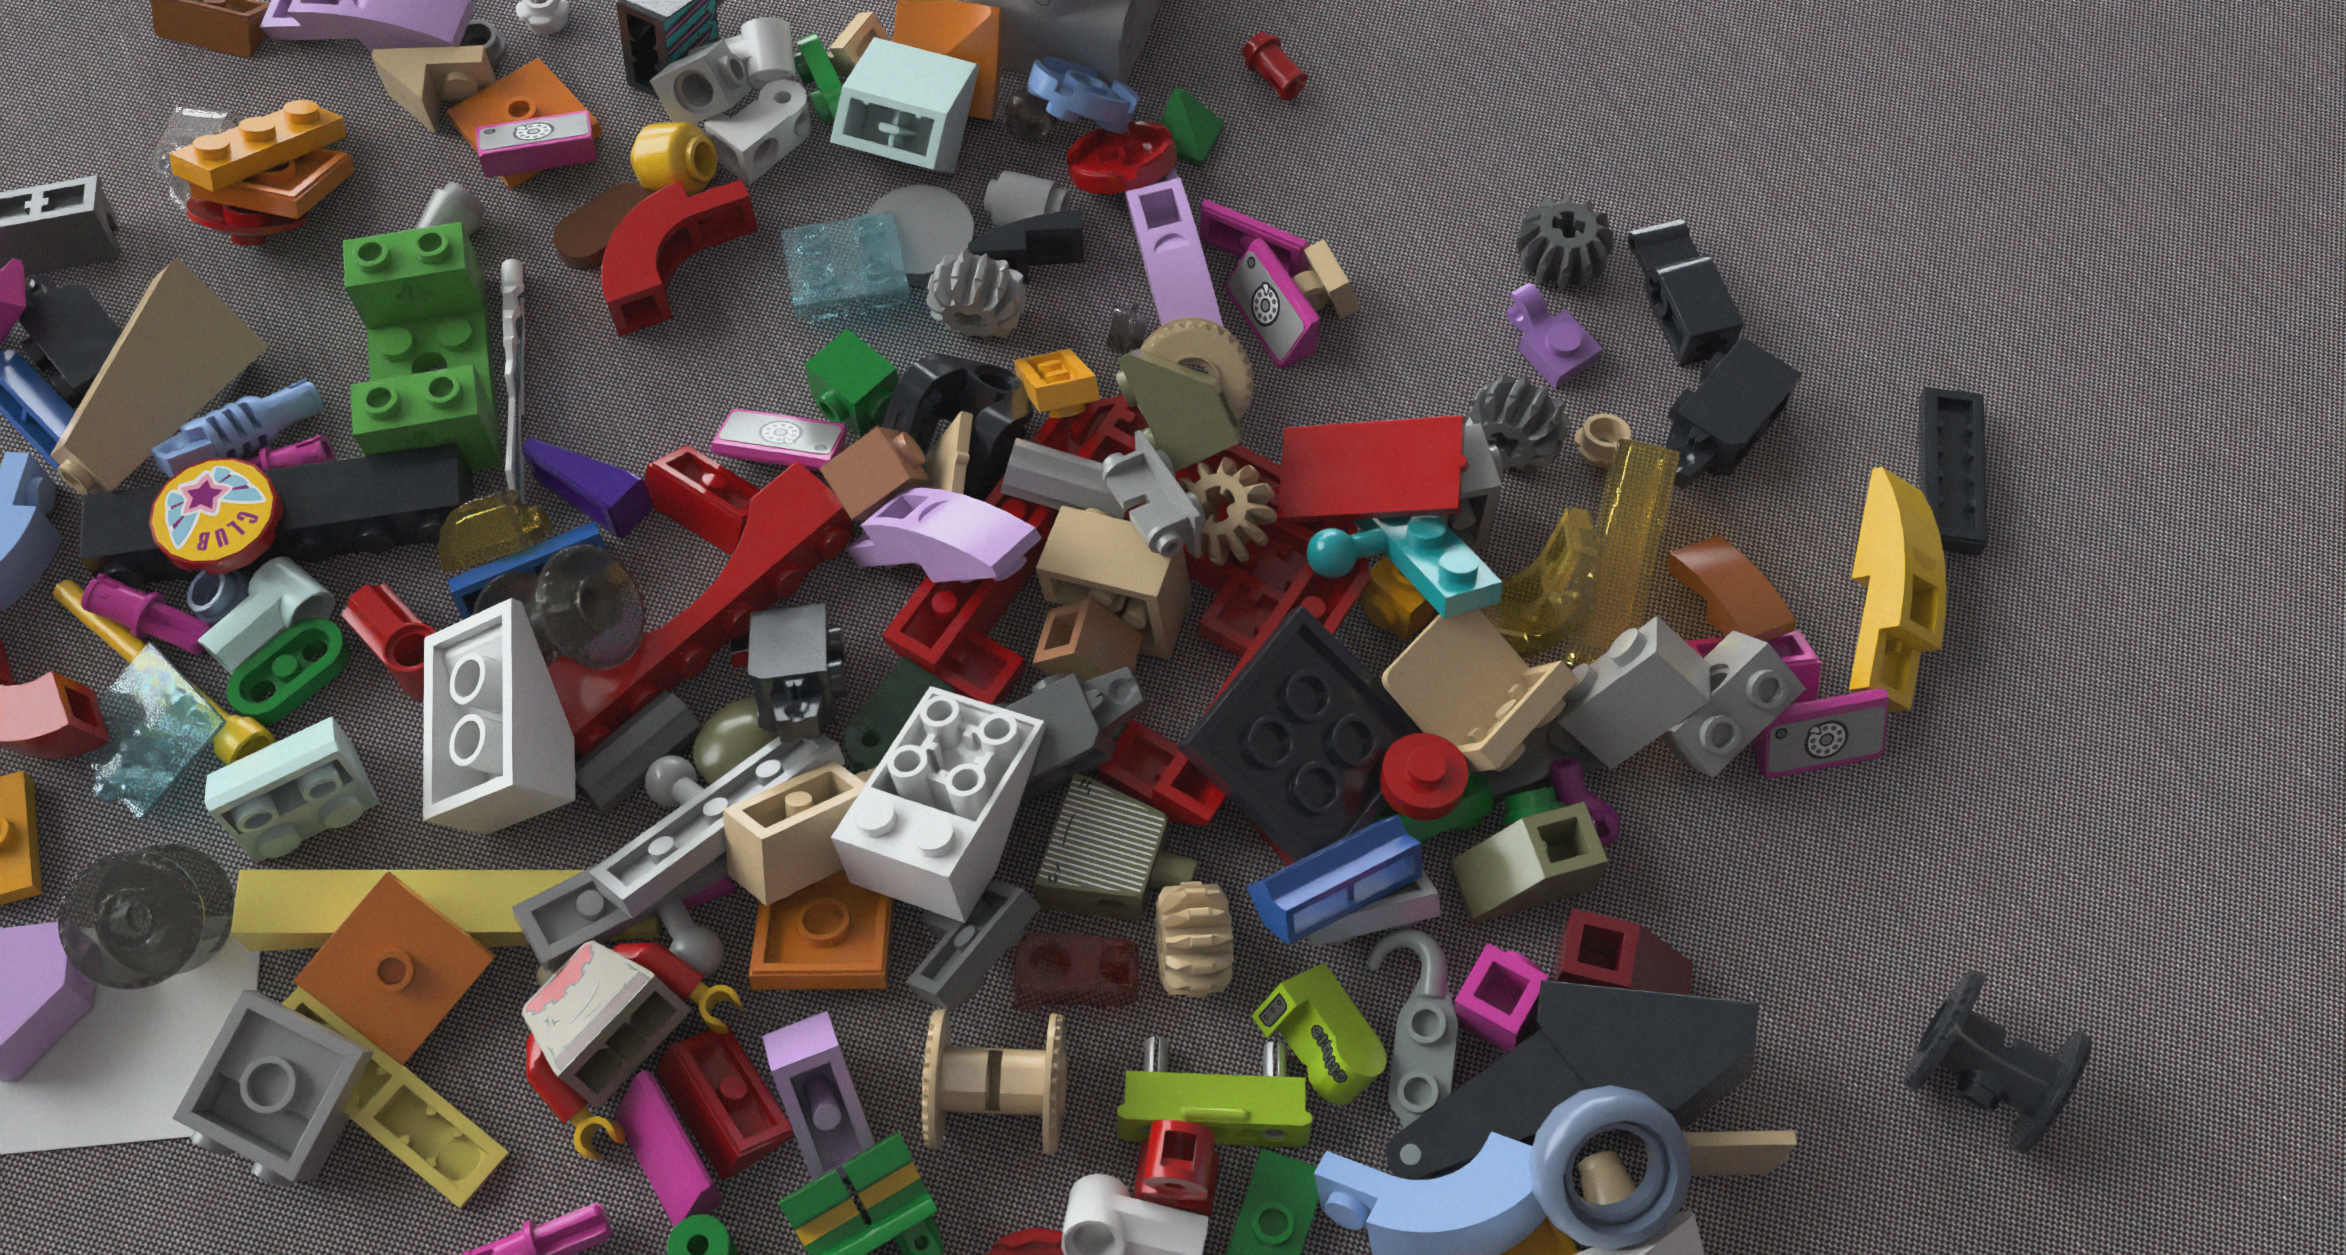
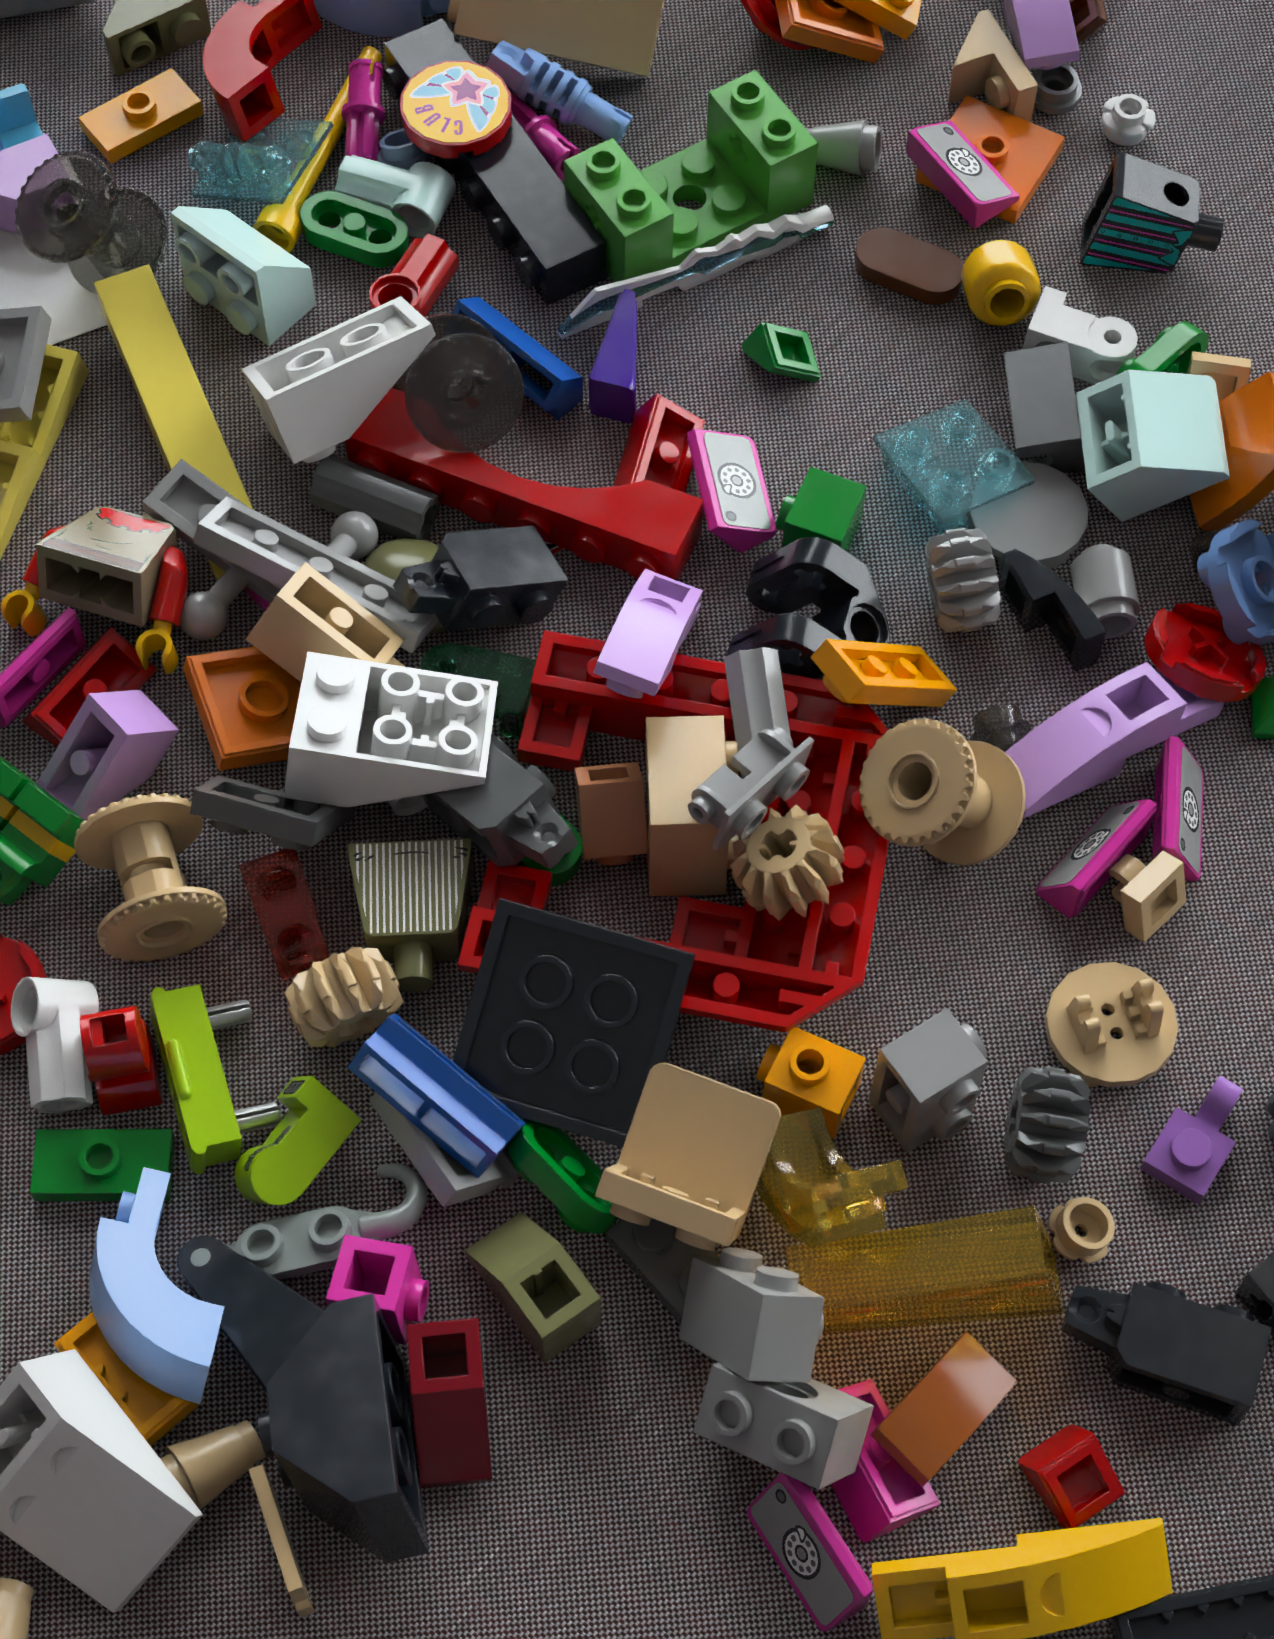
camera: 70 degrees right, 0 degrees up
(394, 968) = (111, 407): orange plate -> none
(489, 530) = (537, 307): clear yellow brick -> none
(646, 355) = (782, 351): none -> green slope
(658, 239) = (899, 306): red arch -> none
(686, 97) = (1083, 264): light grey brick -> none
(763, 49) = (1143, 294): white piece -> none
(822, 171) = (1044, 406): none -> dark grey hinge
(875, 471) = (714, 562): nougat brick -> none
(950, 456) = (725, 628): tan piece -> none
(1182, 407) = (869, 772): olive slope -> none
(1372, 469) = (890, 979): red piece -> none
(1408, 361) = (1083, 1033): none -> tan plate
(1423, 776) = (576, 1140): red wheel -> none
(1425, 553) = (841, 1041): teal plate -> none
(1529, 804) = (604, 1270): green plate -> none
(1570, 787) = (626, 1324): magenta arm -> none
(1653, 1201) = (149, 1411): sand blue wheel -> none
(1799, 529) = (1072, 1475): none -> red slope

